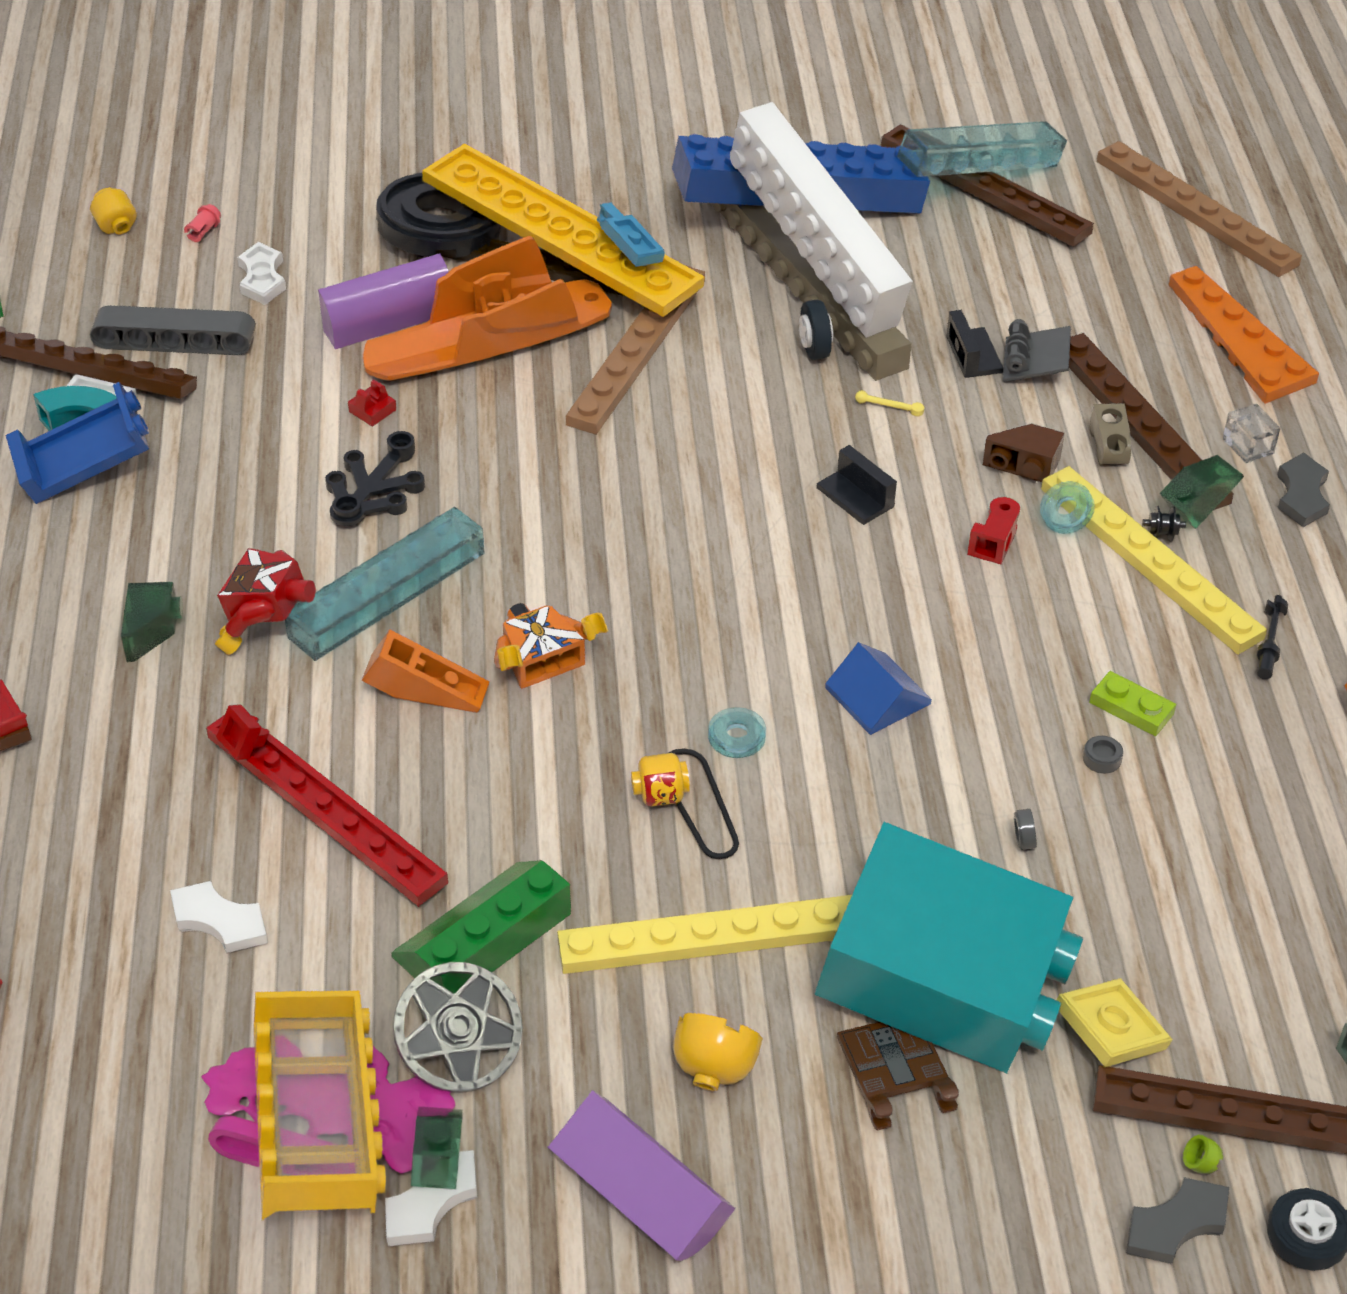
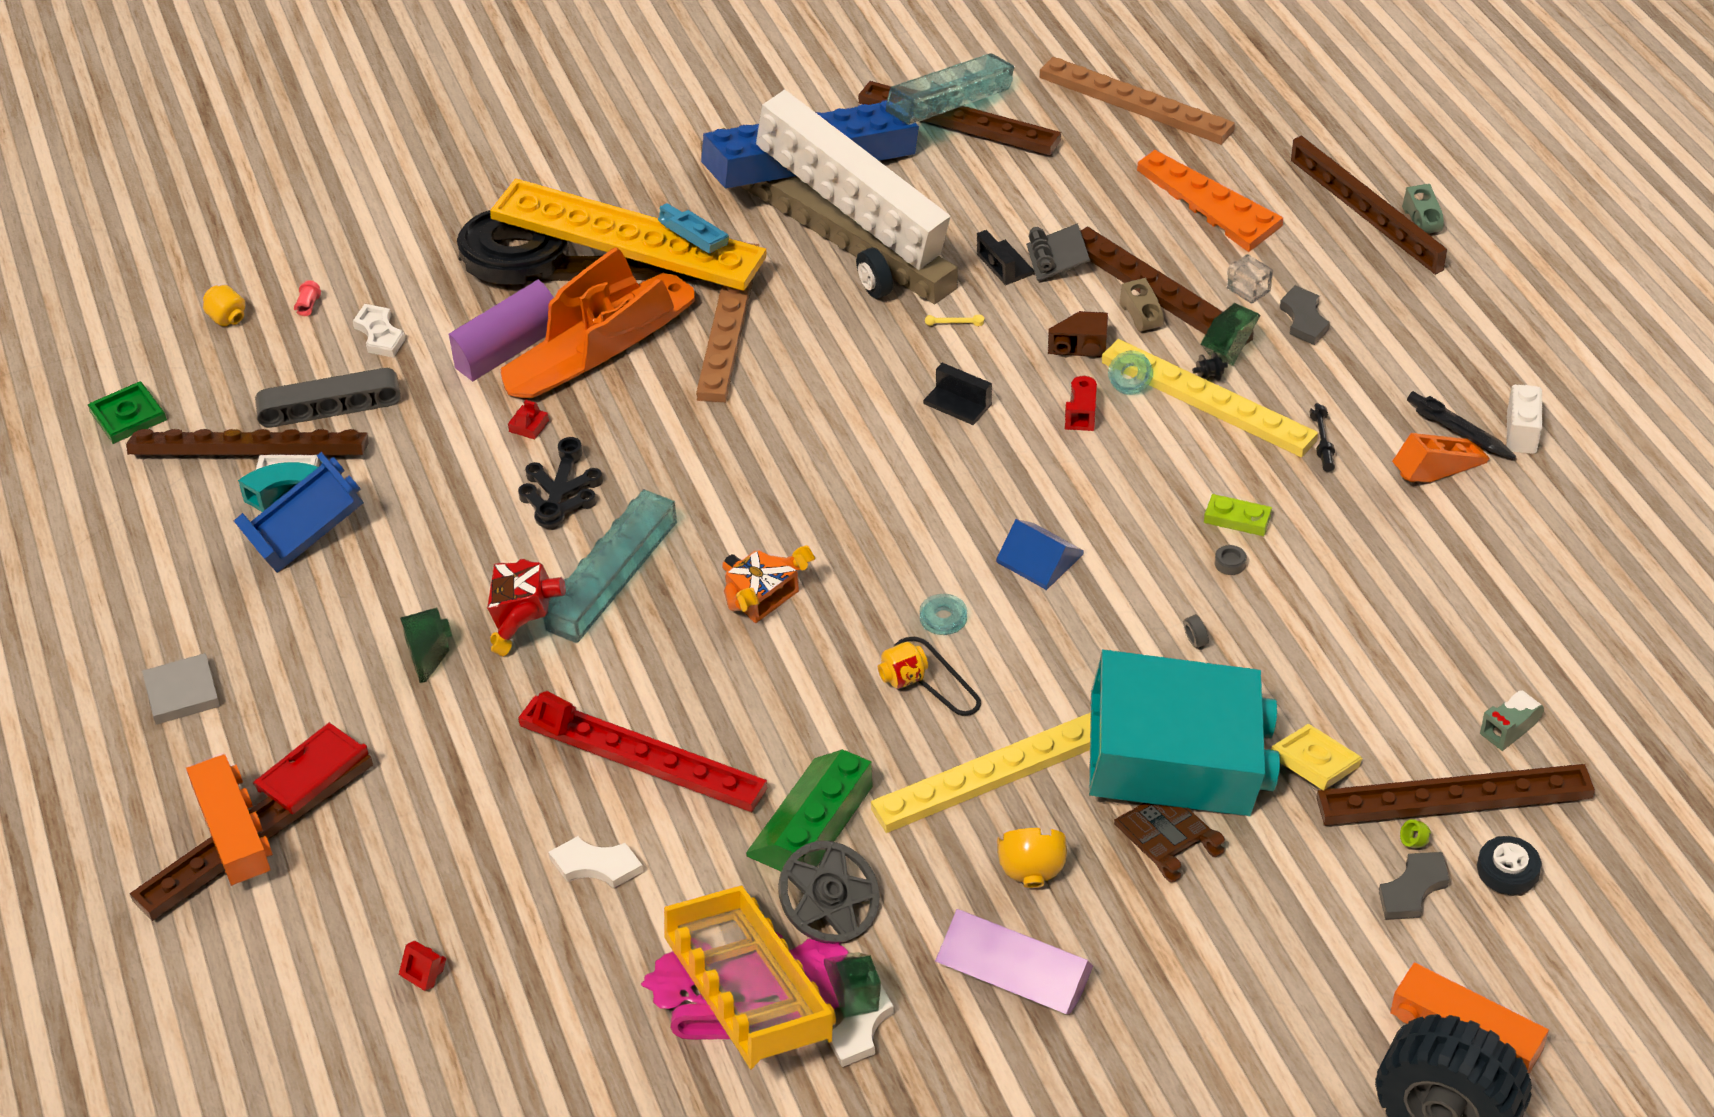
camera: 15 degrees left, 0 degrees up
(422, 676) = (674, 632): orange slope -> none

